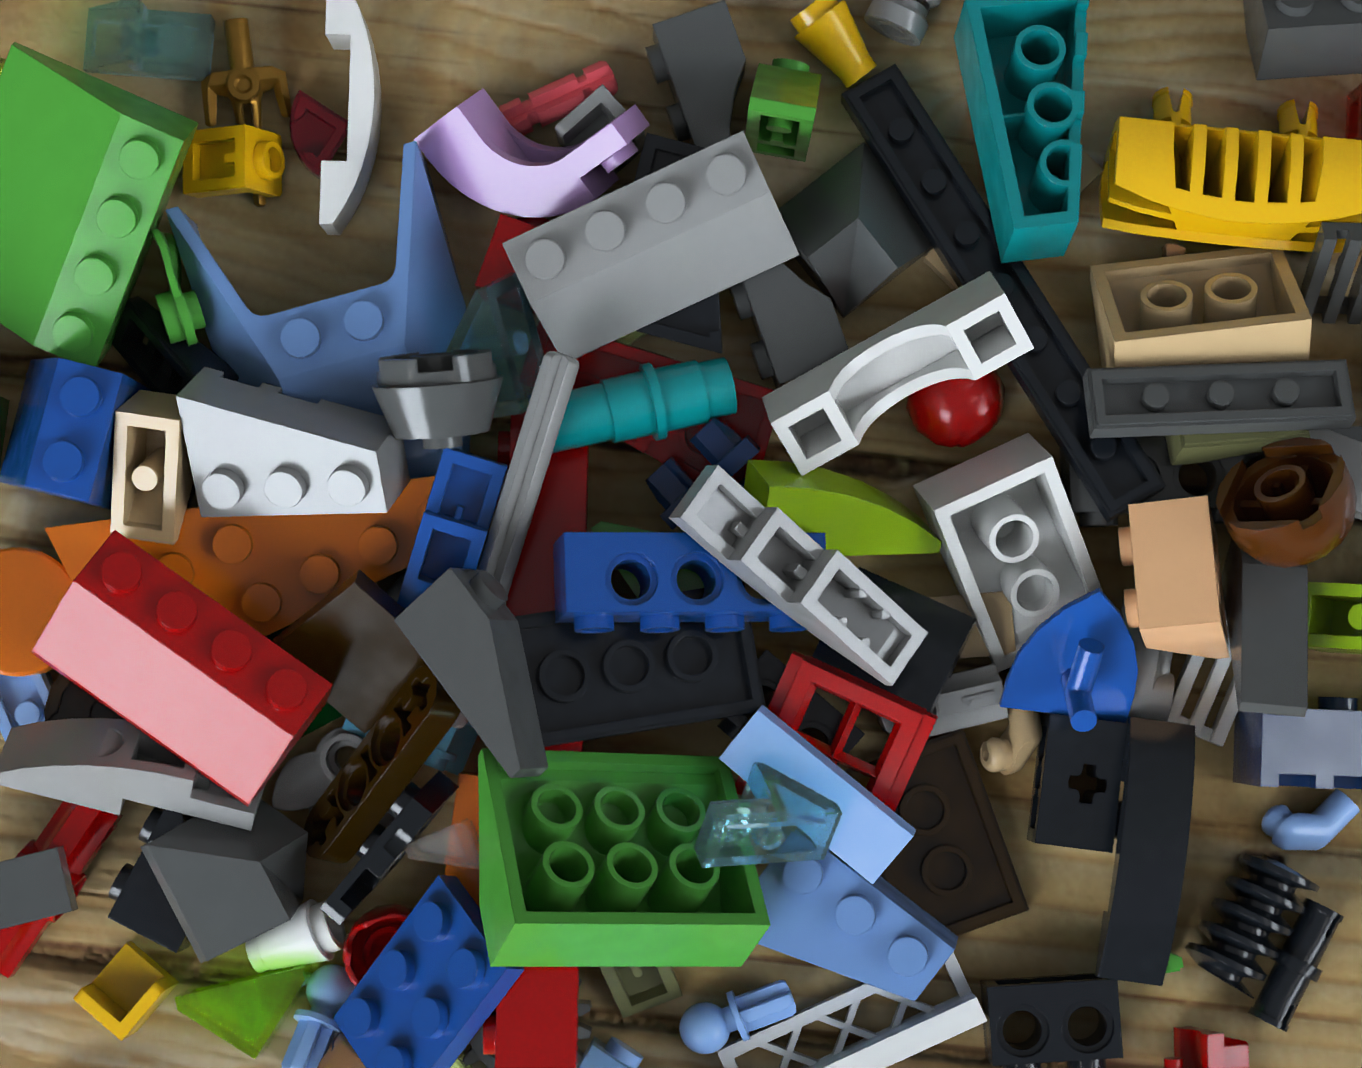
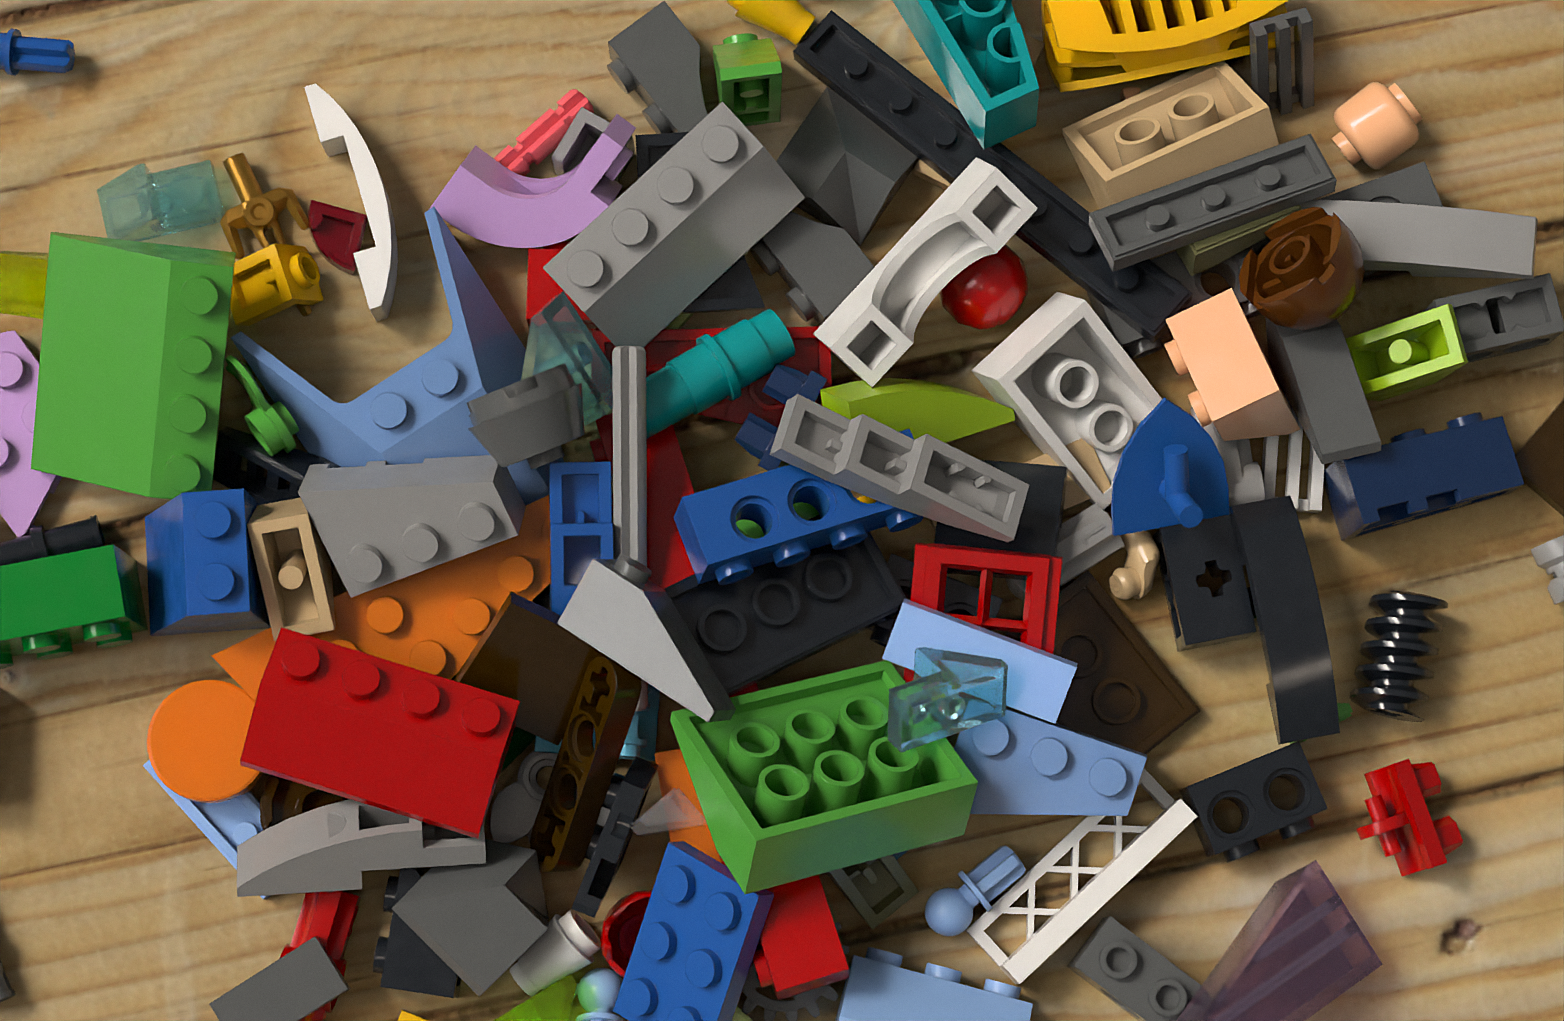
camera: 25 degrees left, 5 degrees down
(1296, 965) = (1452, 681): black pin -> none
(1312, 829) = (1421, 559): light blue arm -> none

